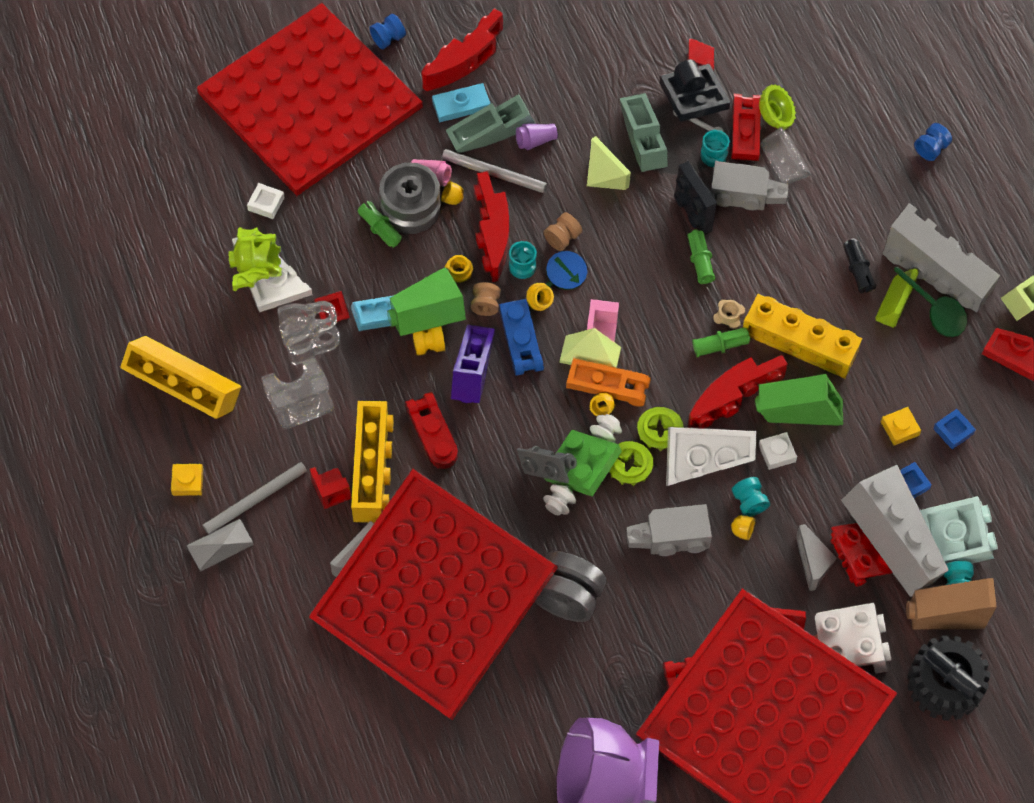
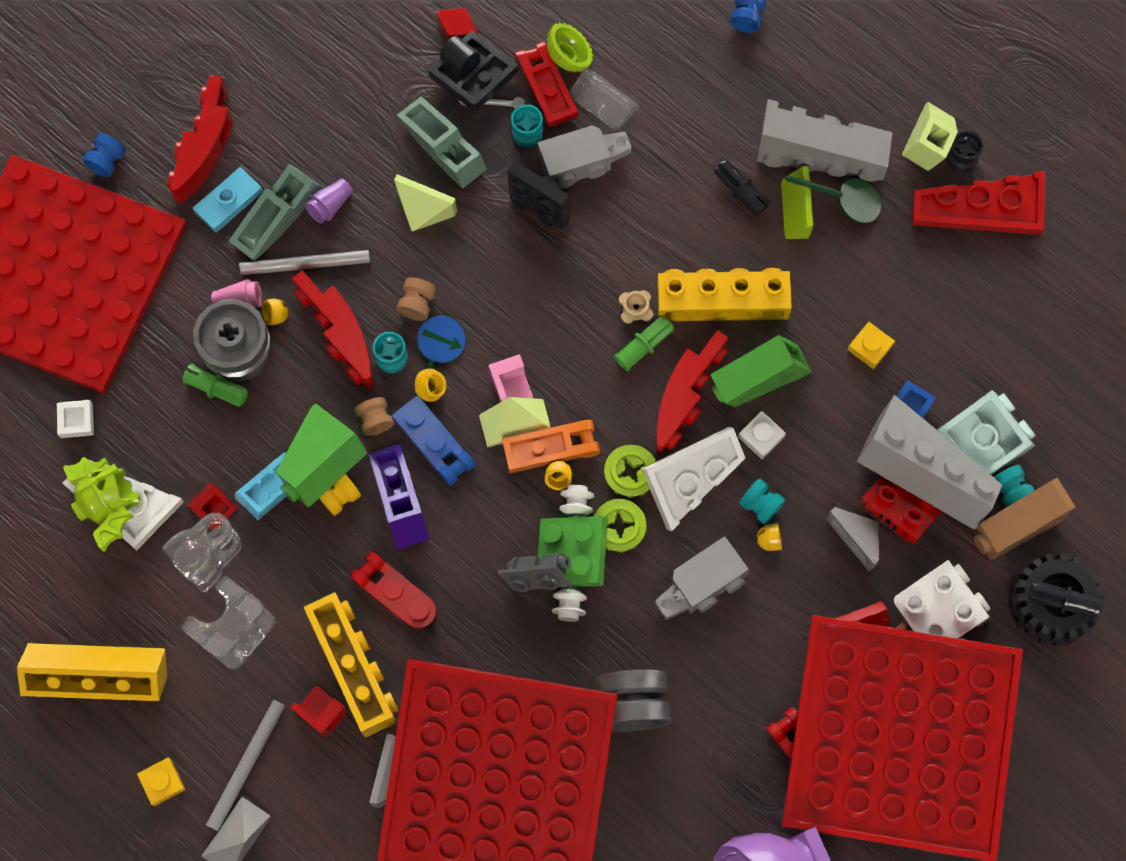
camera: 25 degrees left, 10 degrees up
(459, 261) = (327, 385): yellow plate -> none
(701, 257) = (574, 256): bright green axle -> none
(954, 429) = (927, 323): blue plate -> none

